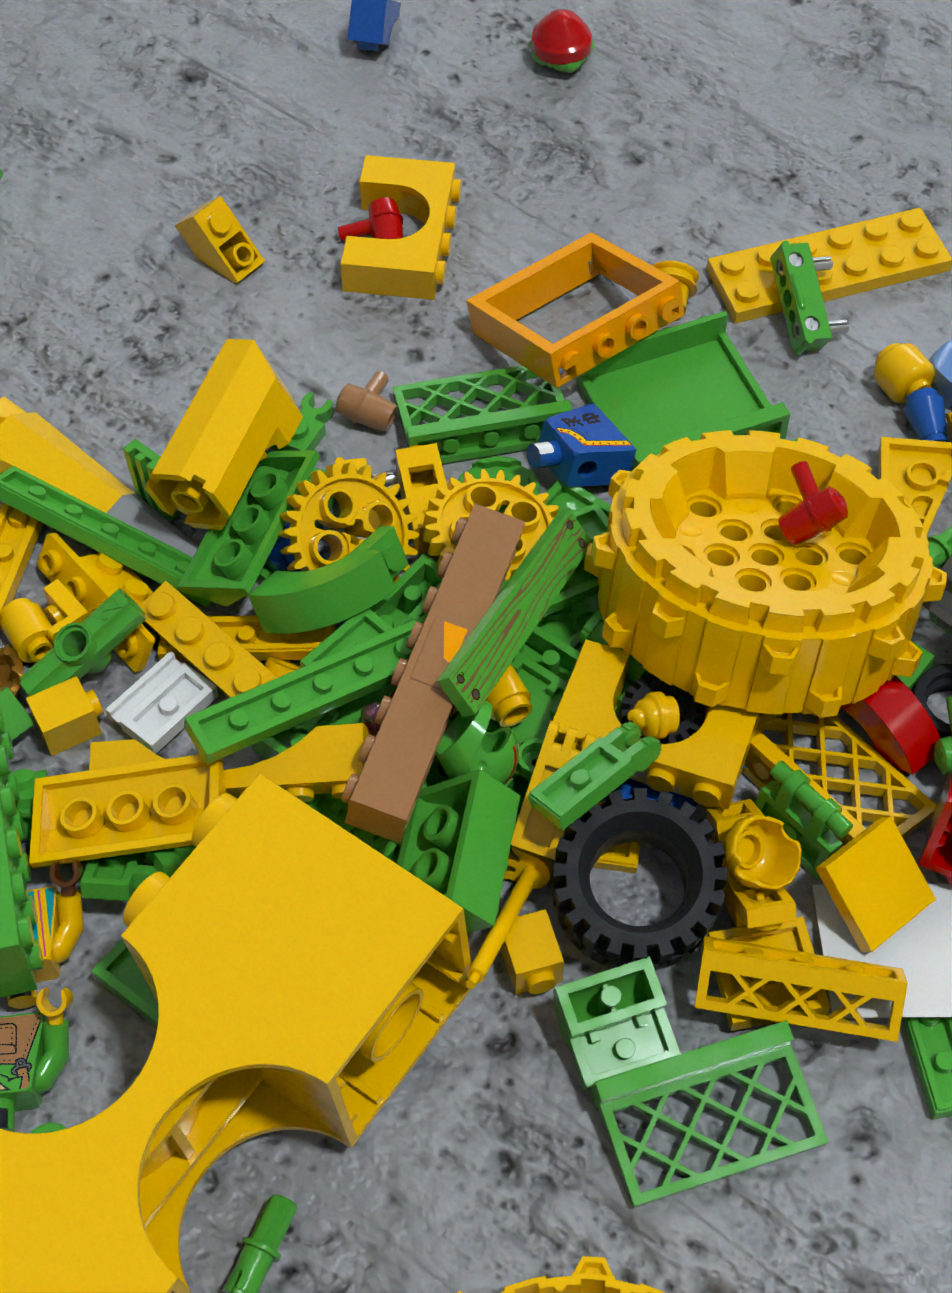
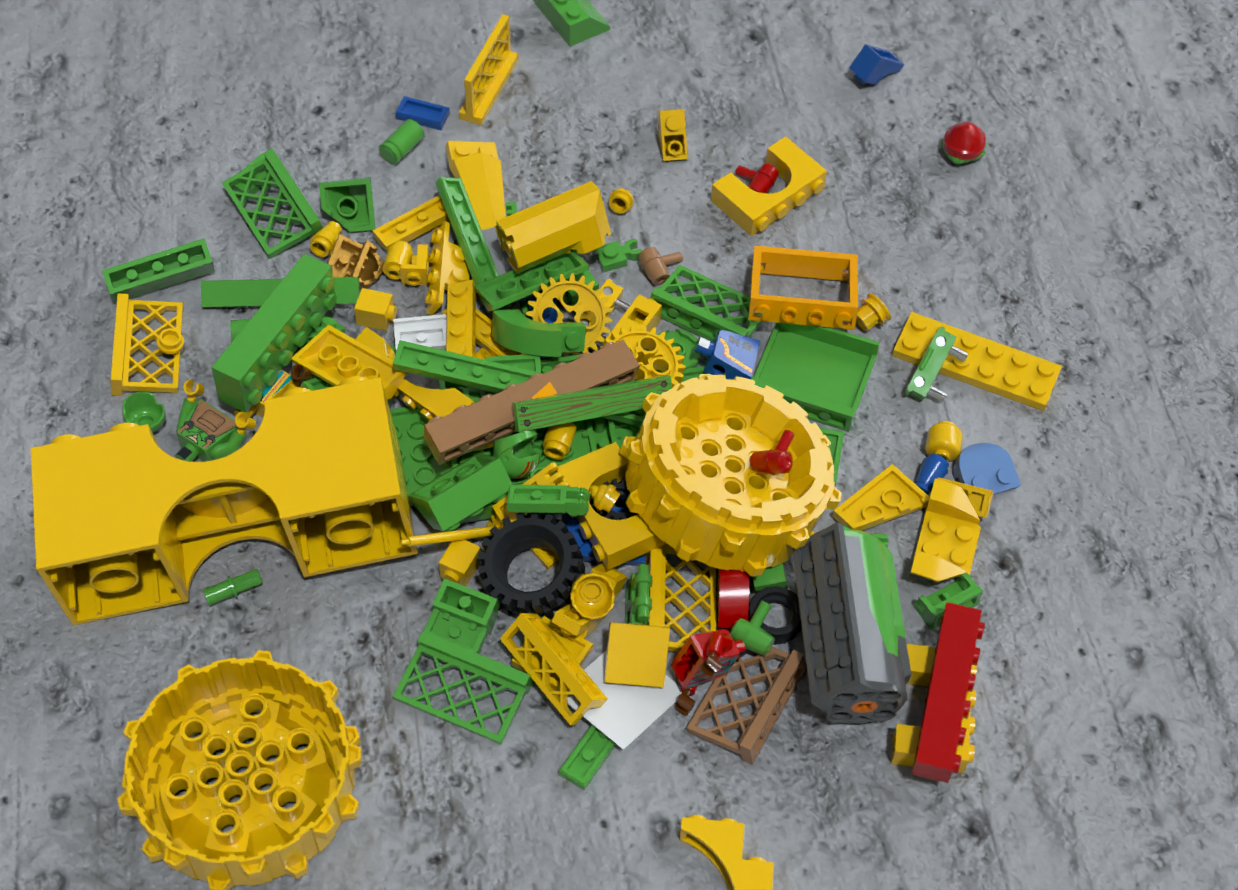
camera: 40 degrees right, 0 degrees up
(100, 633) = (410, 283): bright green piece -> none

